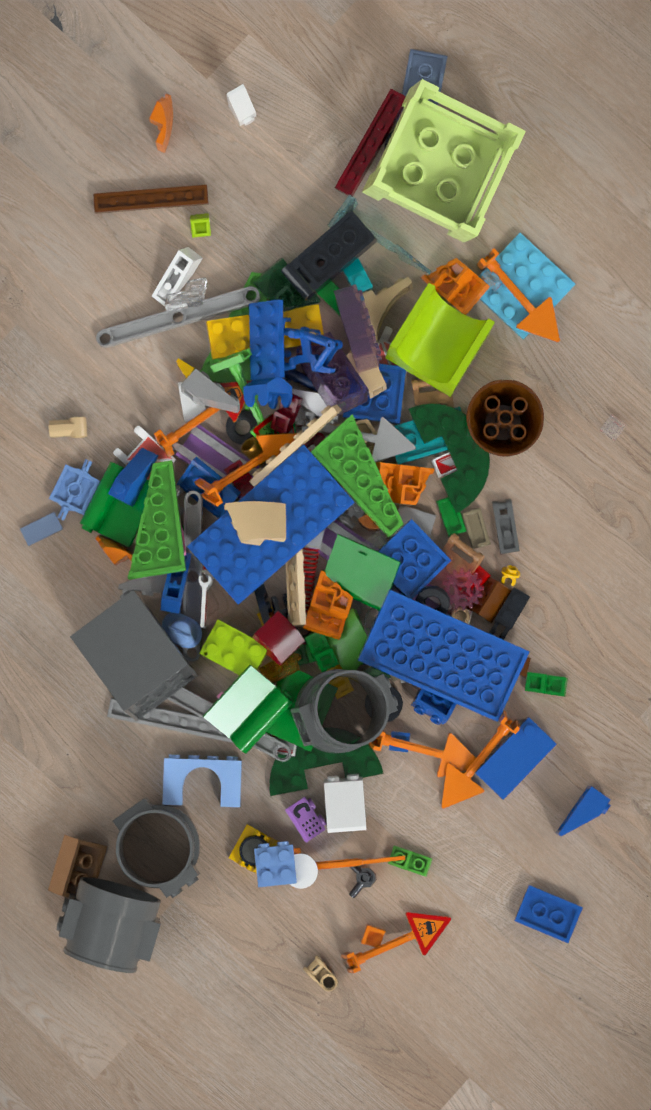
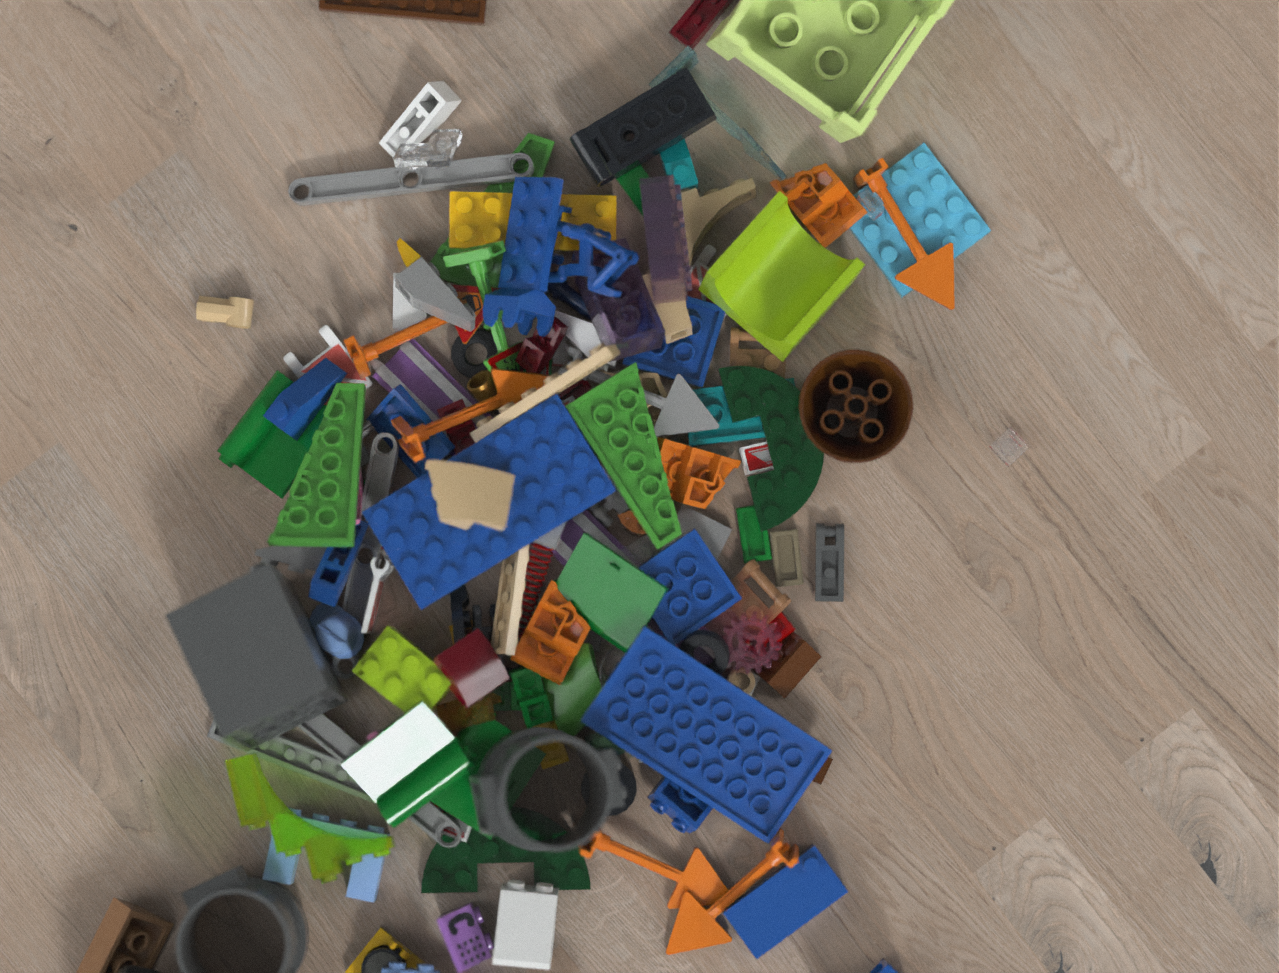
camera: 10 degrees right, 0 degrees up
(41, 529) = (161, 449): sand blue tile -> none
(74, 489) = (218, 401): medium blue plate -> none
(114, 550) = (258, 498): orange slope -> none
(152, 754) = (325, 850): none -> clear neon green arch
(200, 225) = (467, 53): lime slope -> none
(277, 287) = (559, 159): clear green slope -> none
(399, 735) = (625, 839): blue plate -> none
(510, 572) = (825, 630): yellow plate -> none
(510, 611) = (814, 687): black hinge -> none
(546, 684) = (848, 801): green slope -> none

